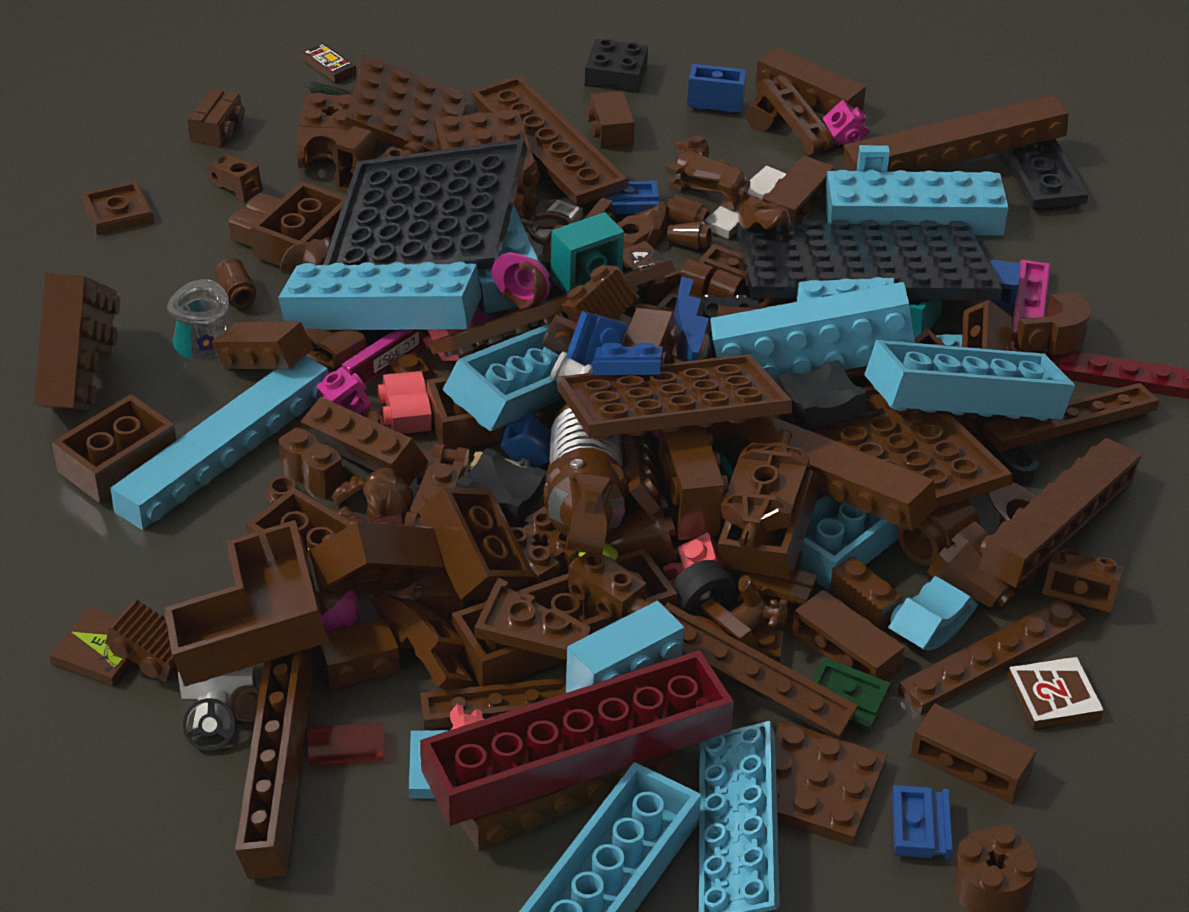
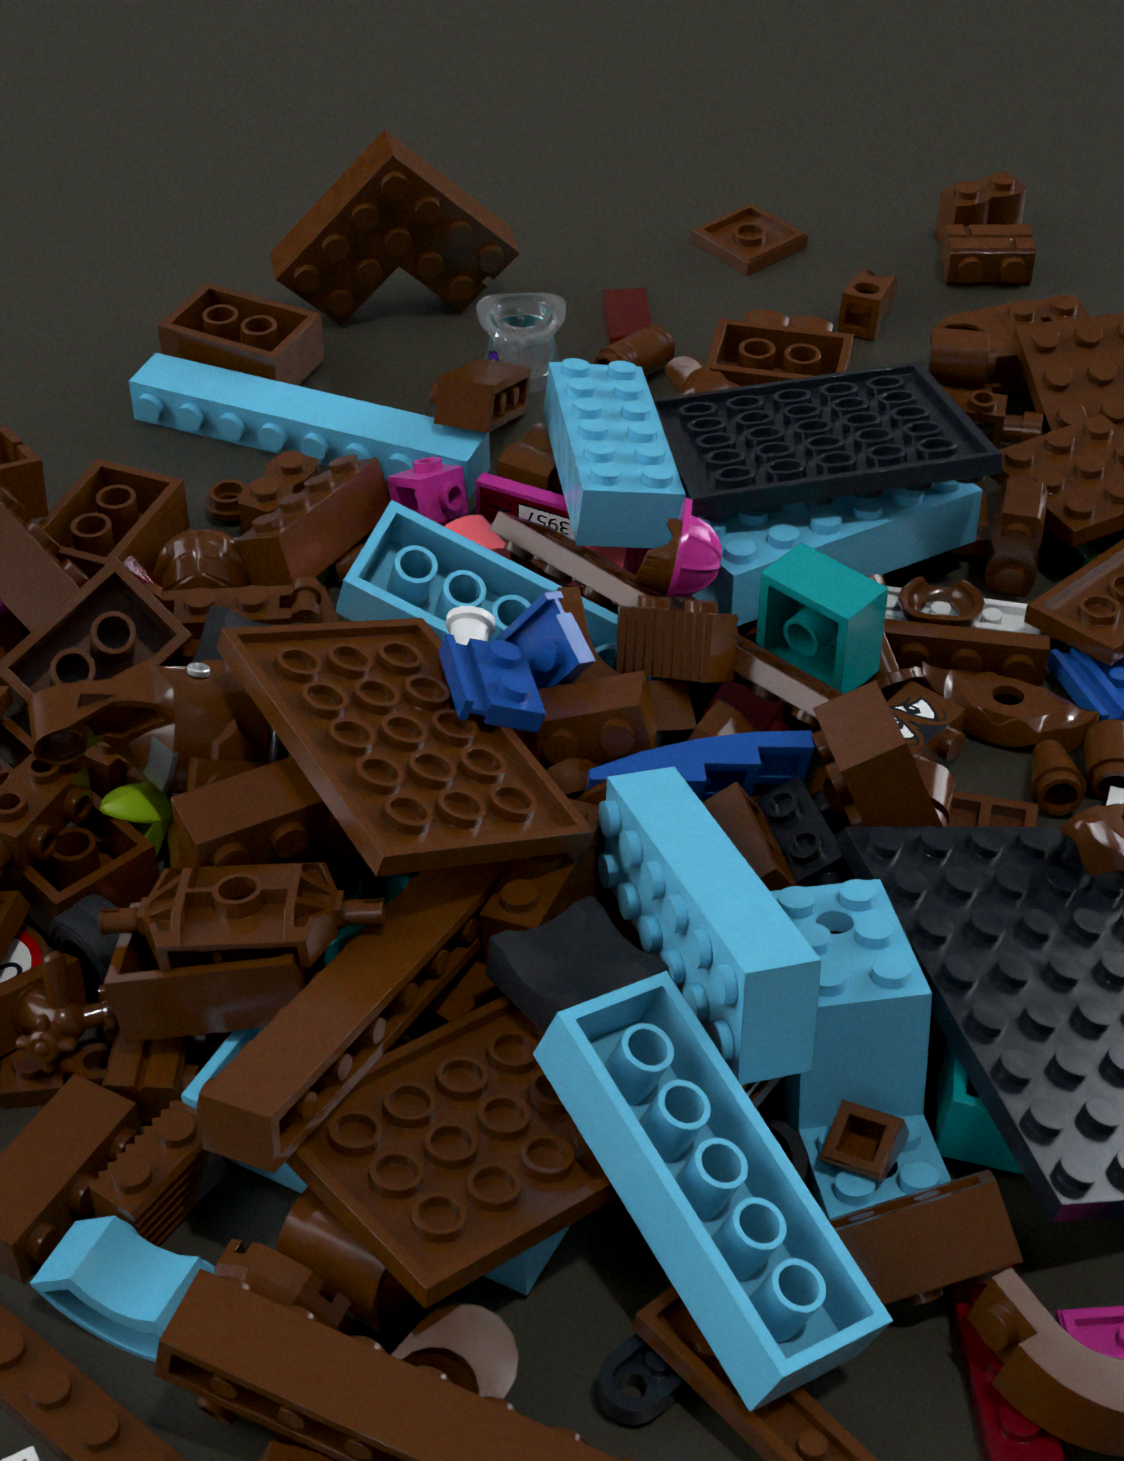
camera: 75 degrees right, 0 degrees up
(169, 105) = (989, 201): none -> reddish brown brick
(173, 277) = (625, 312): none -> clear red tile
(711, 262) = (872, 762): none -> reddish brown brick

